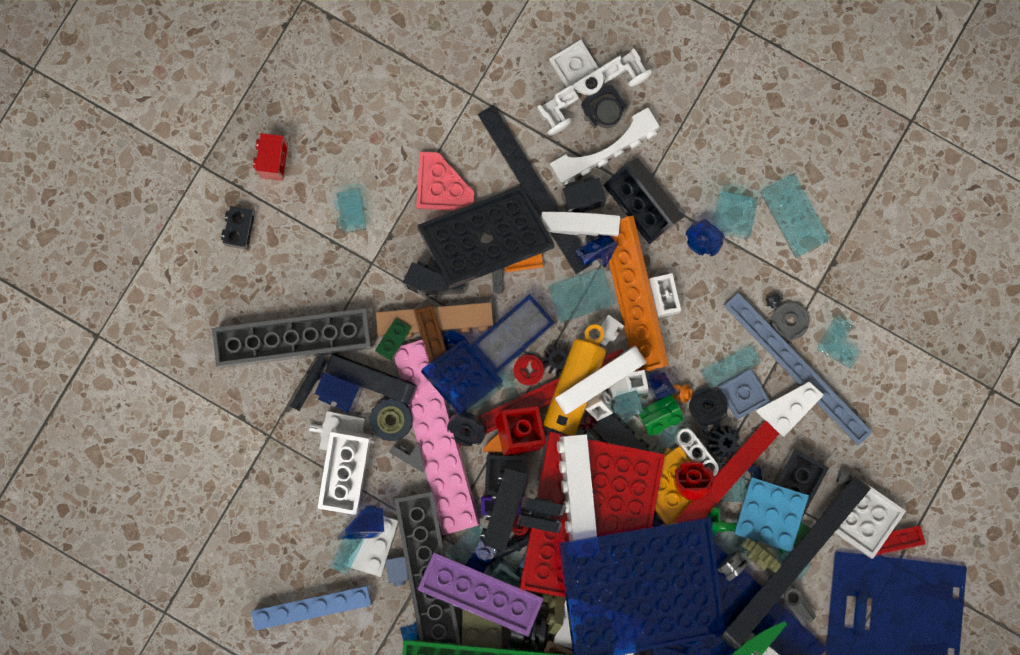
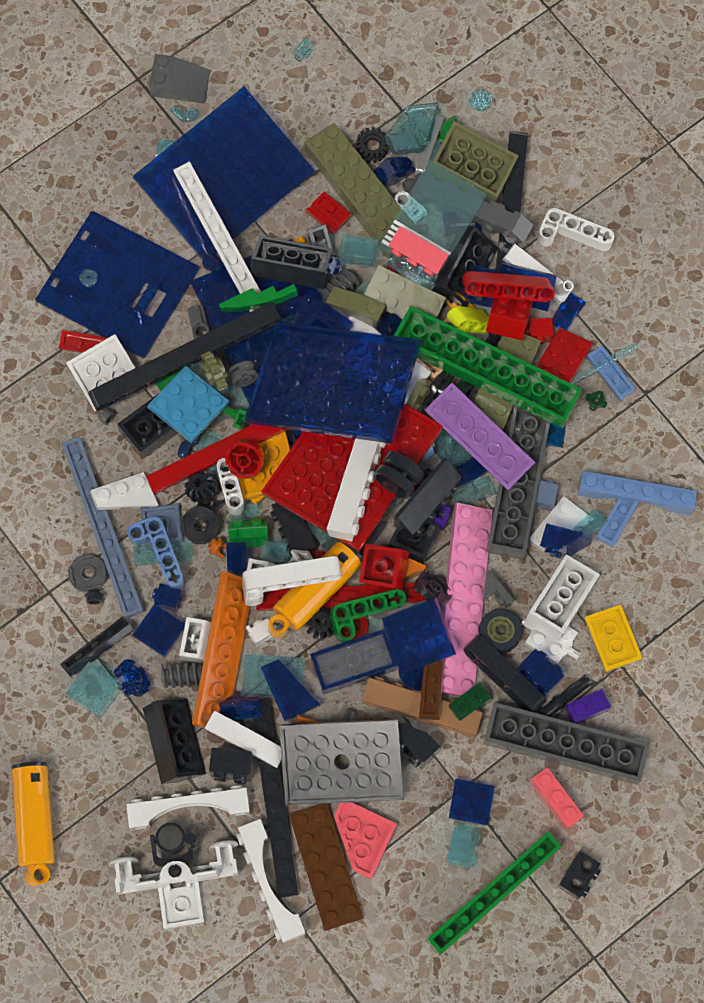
camera: 160 degrees left, 10 degrees down
(271, 156) = (521, 931): red brick -> none
(283, 286) = (556, 799): none -> coral brick
(284, 456) = (613, 638): none -> yellow plate
(285, 380) = (587, 707): none -> dark purple brick
(307, 180) = (493, 893): none -> green brick
(321, 571) = (616, 521): none -> medium blue plate
(357, 254) = (471, 802): none -> clear blue plate
(464, 148) = (325, 866): none -> reddish brown plate
(477, 85) = (287, 924): none -> white arch
(518, 384) = (368, 610): none -> green beam
(561, 283) = (287, 691): none -> clear blue wing
(663, 259) = (181, 675): none -> dark grey piece
(701, 294) = (159, 630): none -> clear blue plate
(707, 326) = (167, 597): none -> clear blue brick
(731, 360) = (161, 554): none -> medium blue beam
(734, 82) = (33, 820): none -> light orange piece
(750, 255) = (96, 646): none -> black plate
(794, 216) = (36, 669): clear light blue tile -> none
(834, 345) = (57, 535): clear light blue plate -> none
(921, 609) = (88, 282): none -> clear light blue plate

